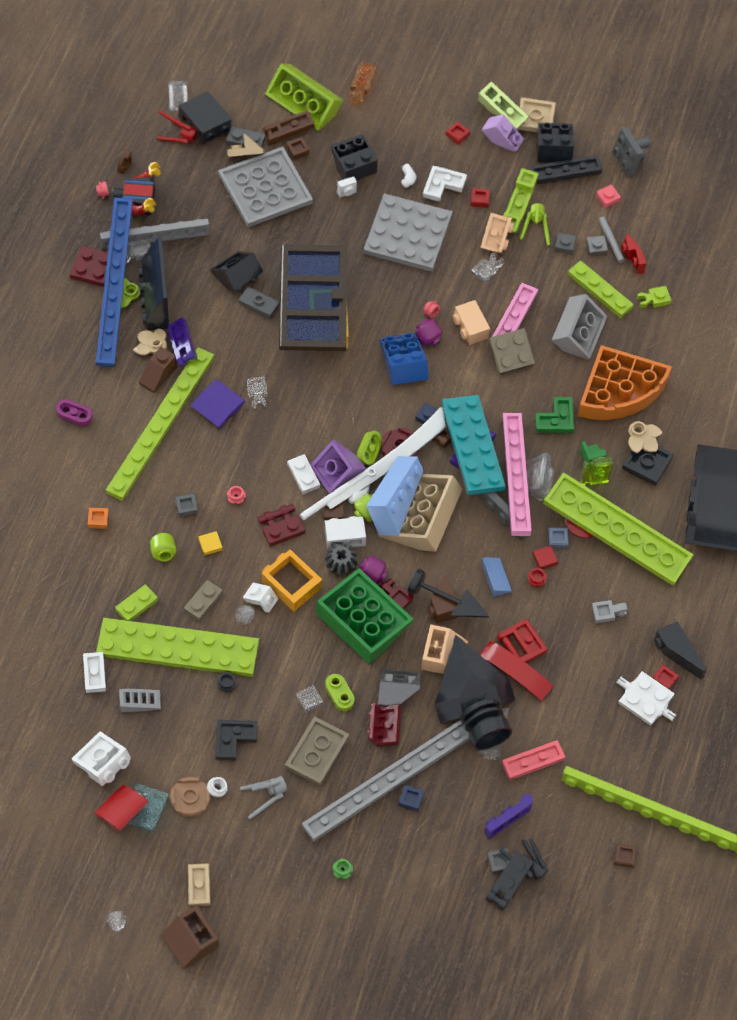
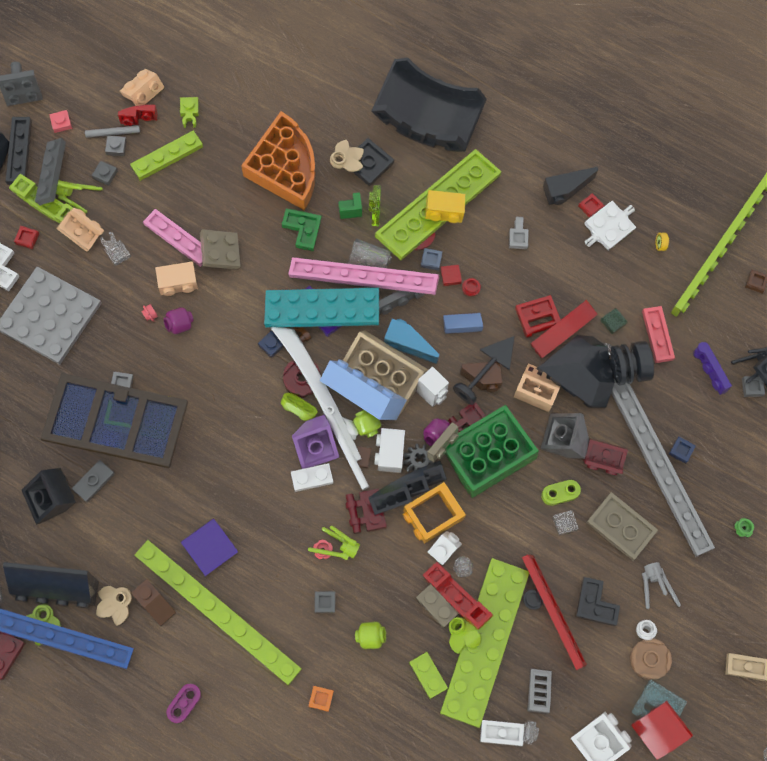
camera: 80 degrees left, 10 degrees up
(98, 694) = (530, 732): none -> clear plate
(180, 623) = (465, 636): none -> lime plate
(181, 341) = (124, 570): dark purple plate -> none
(210, 543) = (373, 586): yellow tile -> none
(216, 612) = (457, 597): none -> red slope
(217, 699) = (554, 612): none -> red tile
(242, 513) = (348, 545): none -> lime plant
(257, 390) = (202, 503): clear plate -> none
(309, 548) = (408, 486): none -> black slope
(356, 302) = (122, 379): none -> flat silver plate
(358, 565) = (439, 447): none -> dark tan plate
(404, 358) = (201, 351): blue slope -> none
(416, 553) = (432, 387): none -> white brick
(464, 526) = (408, 340): none -> dark azure slope
(538, 717) = (614, 321): none -> clear green tile
(550, 197) = (50, 171): none -> dark grey plate
(579, 326) = (207, 183): light grey slope -> none
(610, 528) = (445, 206): none -> yellow brick
(641, 750) = (662, 241): none -> yellow tile
(665, 252) = (142, 87): none -> light nougat bracket

